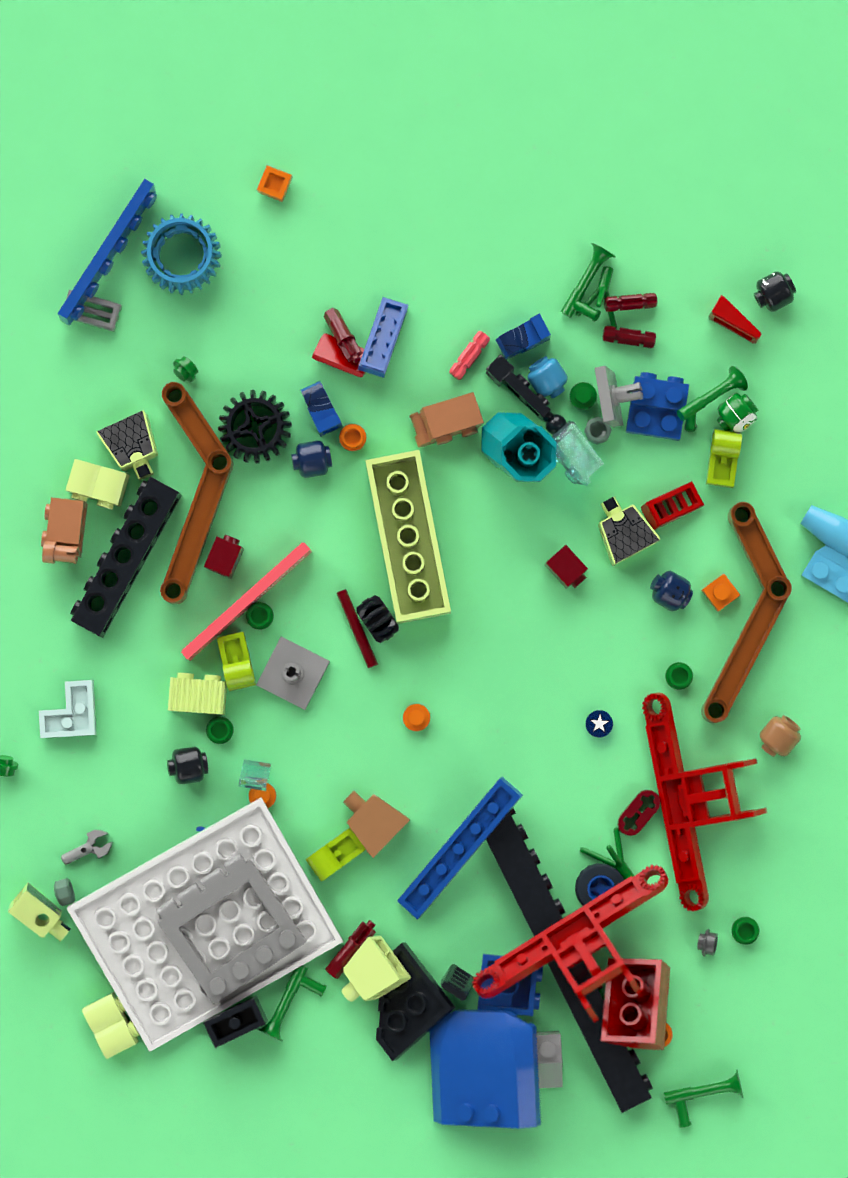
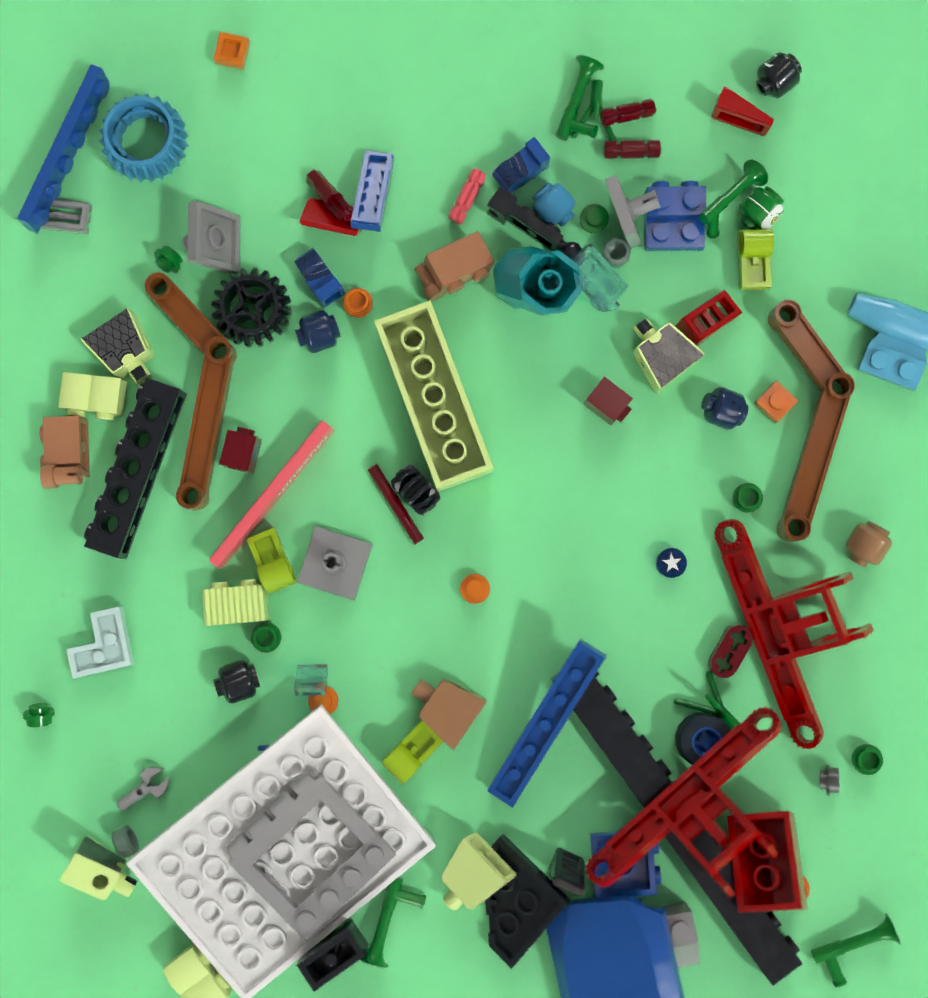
camera: 10 degrees left, 0 degrees up
(230, 358) = (213, 237): none -> light grey tile
(259, 615) = (289, 507): green plate -> none
(336, 966) = (449, 843): dark red piece -> none

